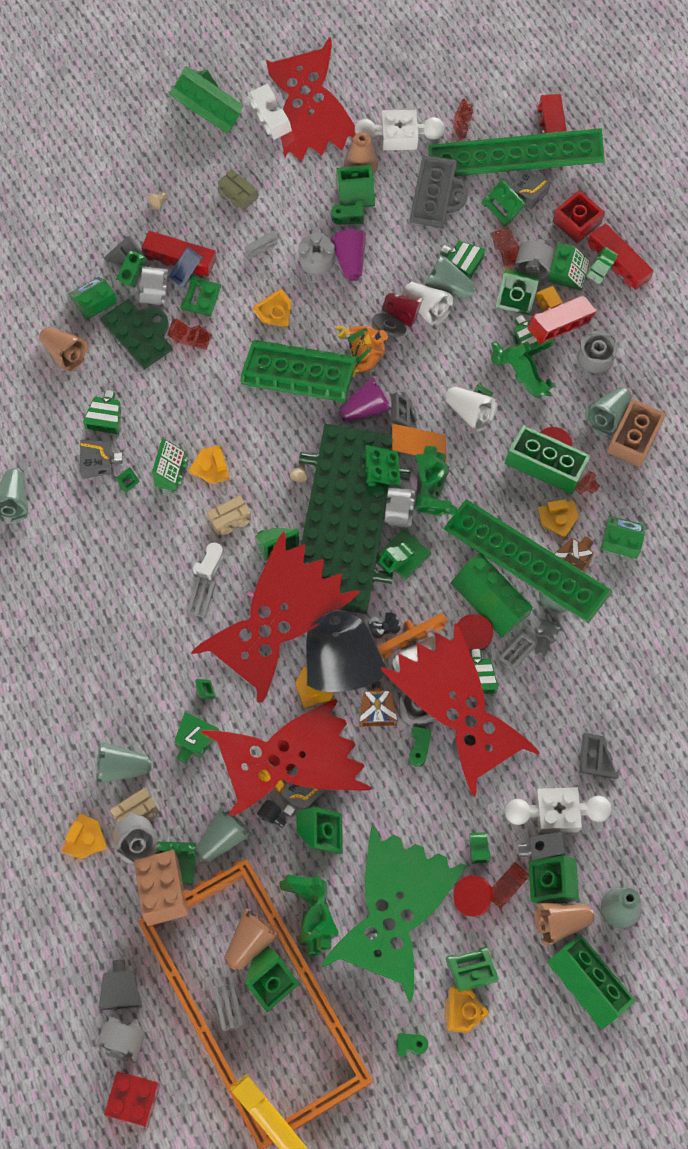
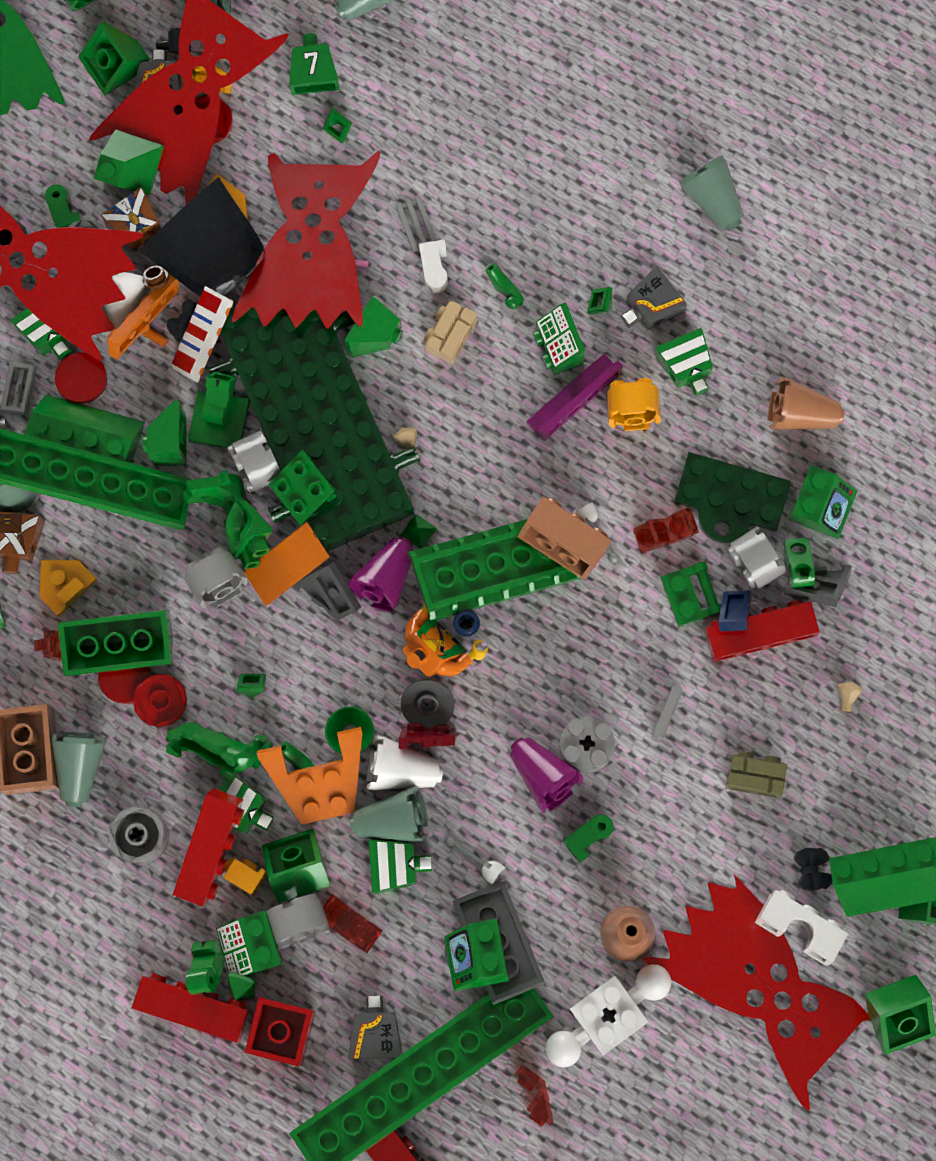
camera: 155 degrees right, 10 degrees up
(155, 404) = (633, 404): none -> light orange brick
(176, 526) = (504, 286): none -> green arm
(185, 433) = (574, 397): none -> magenta fence
(210, 465) = (518, 382): light orange plate -> none
(226, 367) = (590, 515): none -> white hinge
(245, 132) = (809, 860): none -> black piece
(250, 51) = (901, 1014): none -> green slope
(250, 349) = (564, 537): none -> nougat brick
(274, 309) = (586, 633): light orange plate -> none
(328, 418) = (418, 531): none -> green slope
(338, 345) = (466, 617): none -> dark blue cone
(355, 184) = (604, 879): green slope -> none
(357, 747) = (129, 162): none -> green slope
(381, 604) = (201, 334): none -> sticker
(389, 655) = (155, 277): none -> reddish brown plate
(412, 229) = (489, 870): none -> hinge
(442, 329) = (349, 716): none -> green piece
(443, 553) = (167, 437): none -> green slope
(450, 183) = (476, 955): none -> green slope
(466, 457) = (215, 578): none -> light grey brick
(472, 406) = (254, 654): white cone -> none
(478, 317) = (321, 789): none -> orange wing
(479, 338) = (295, 756): none -> green arm
(508, 200) = (391, 994): green plate -> none
(541, 417) = (159, 700): none -> red tile
(587, 250) = (241, 986): none -> green slope

